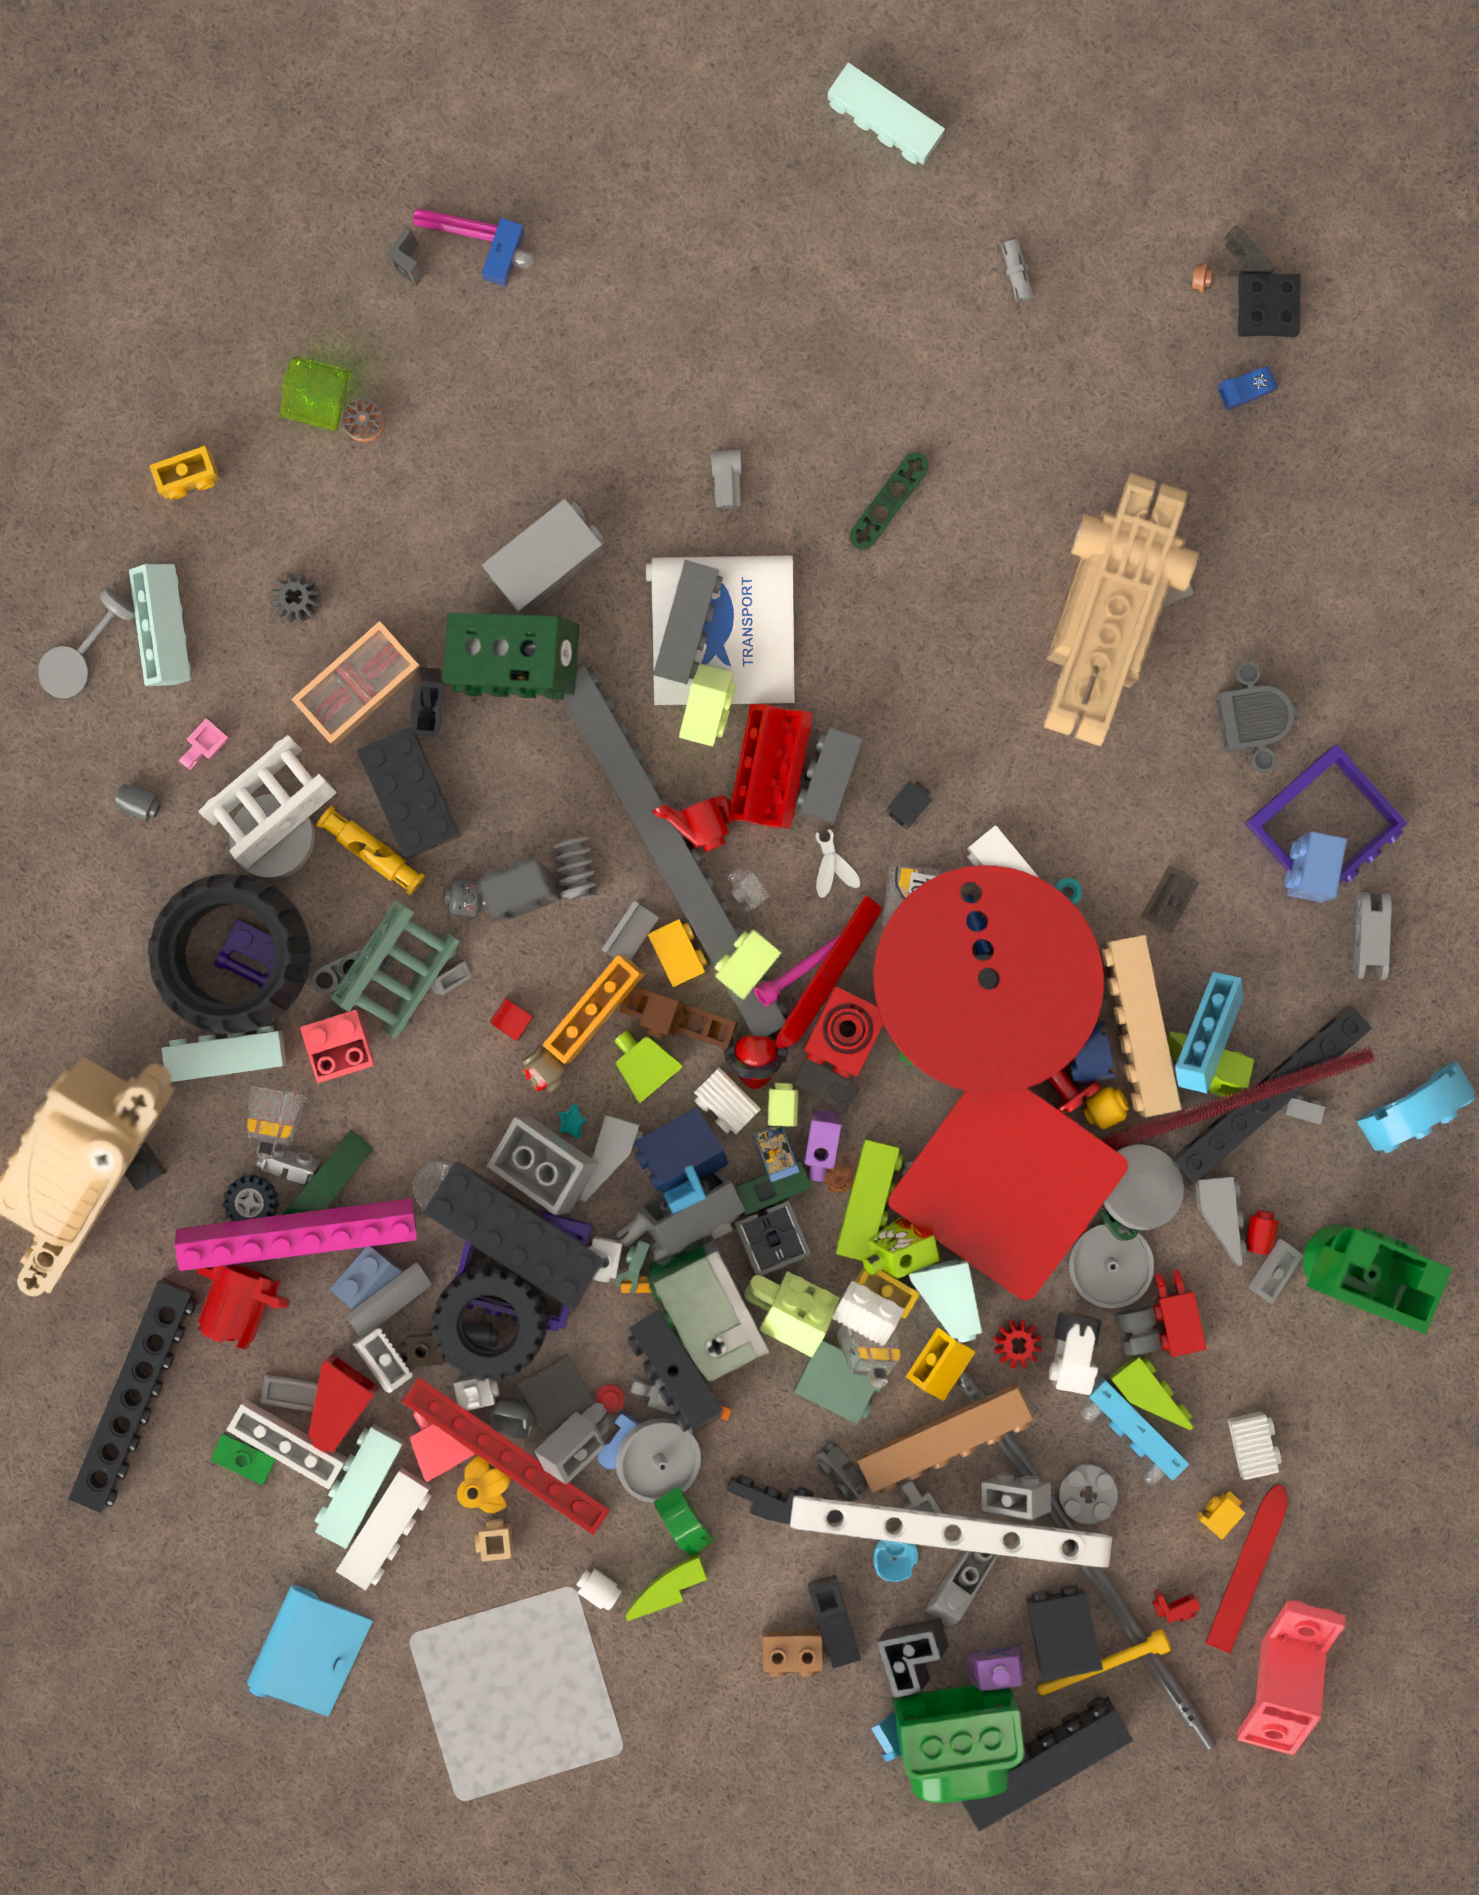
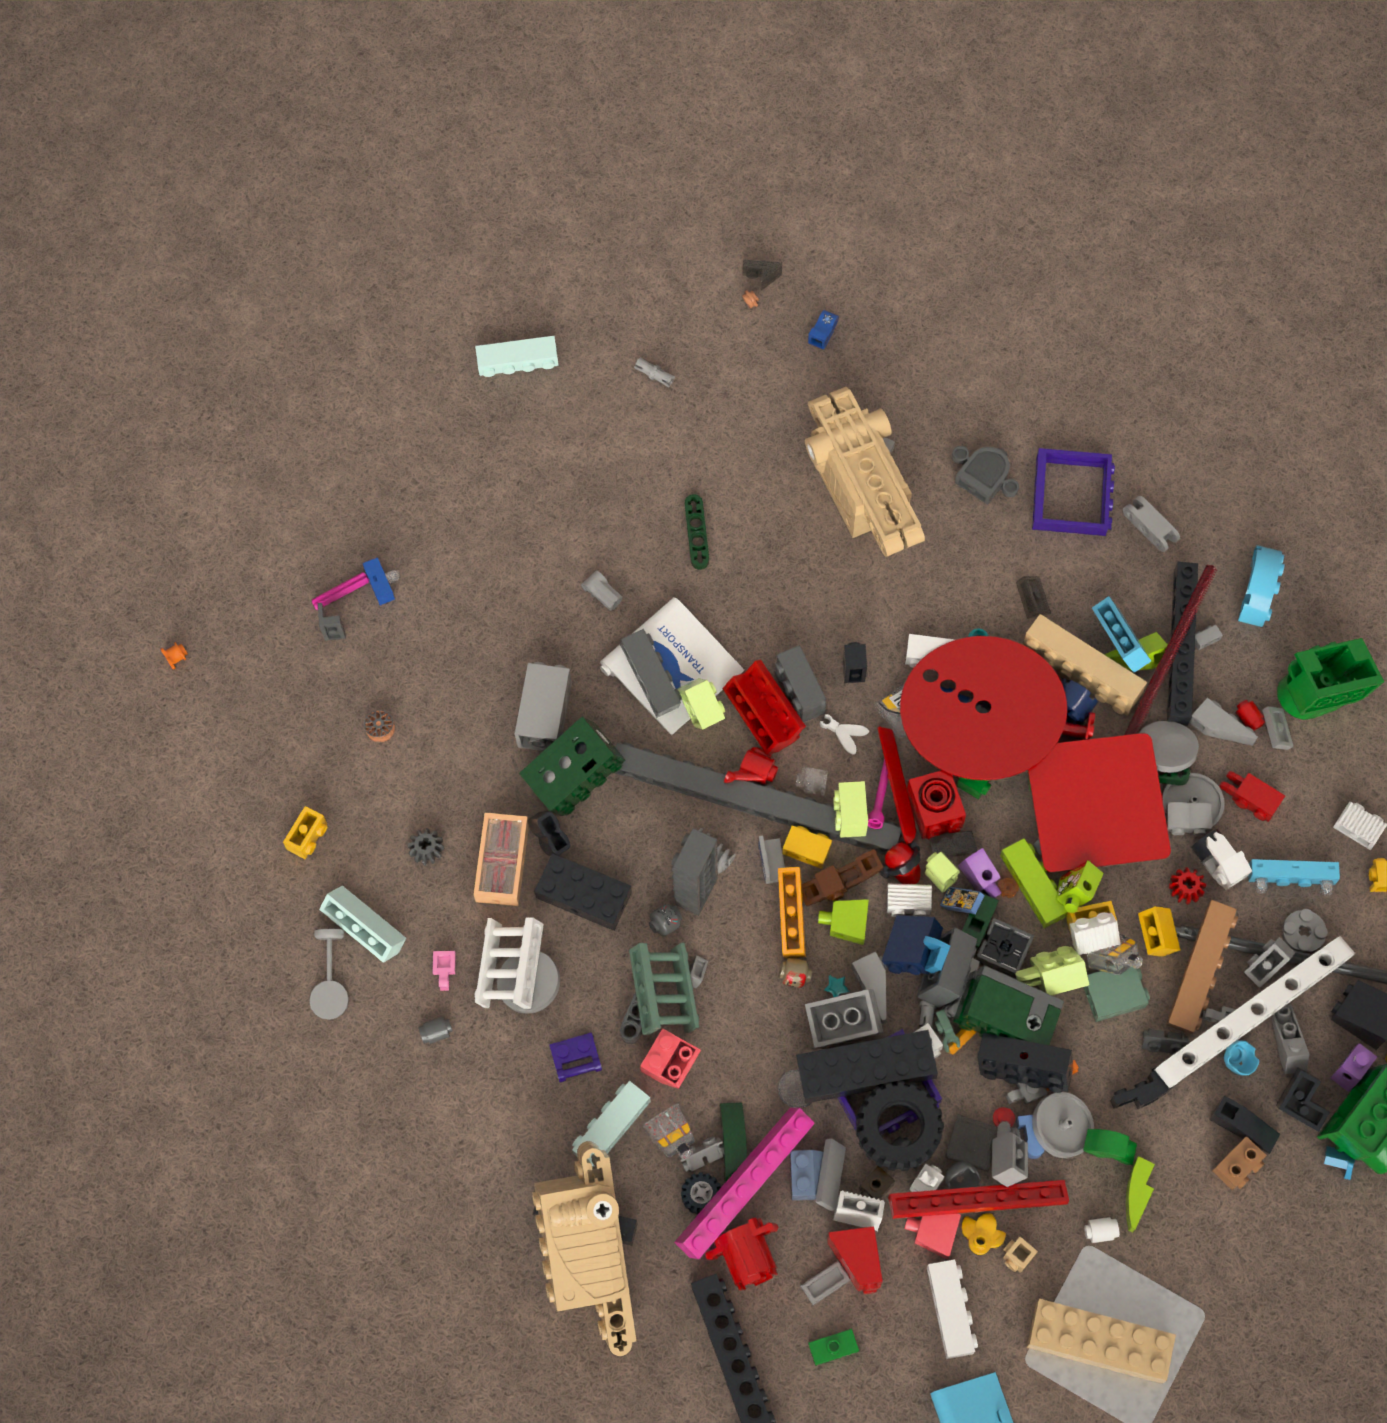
camera: 45 degrees left, 20 degrees down
(171, 937) = (544, 1018): black tyre -> none
(220, 142) = (174, 654): none -> orange brick
(286, 1444) = (851, 1310): white brick -> none
(314, 393) = (340, 734): clear neon green brick -> none
(359, 1486) = (914, 1297): light aqua brick -> none
(390, 865) = (594, 941): yellow piece -> none
(494, 1688) = (1101, 1341): none -> tan brick
(511, 1019) = (751, 961): red brick -> none
(950, 1296) = (1128, 889): light aqua slope -> none
(1086, 1280) = (1189, 817): none -> light grey brick
(1106, 1107) = (1108, 723): yellow head -> none
(1139, 1331) = (1241, 820): dark grey wheel -> none
(1142, 1389) = (1280, 847): lime slope -> none
(1269, 304) = (795, 284): black brick -> none
(1315, 867) = (1090, 507): medium blue brick -> none

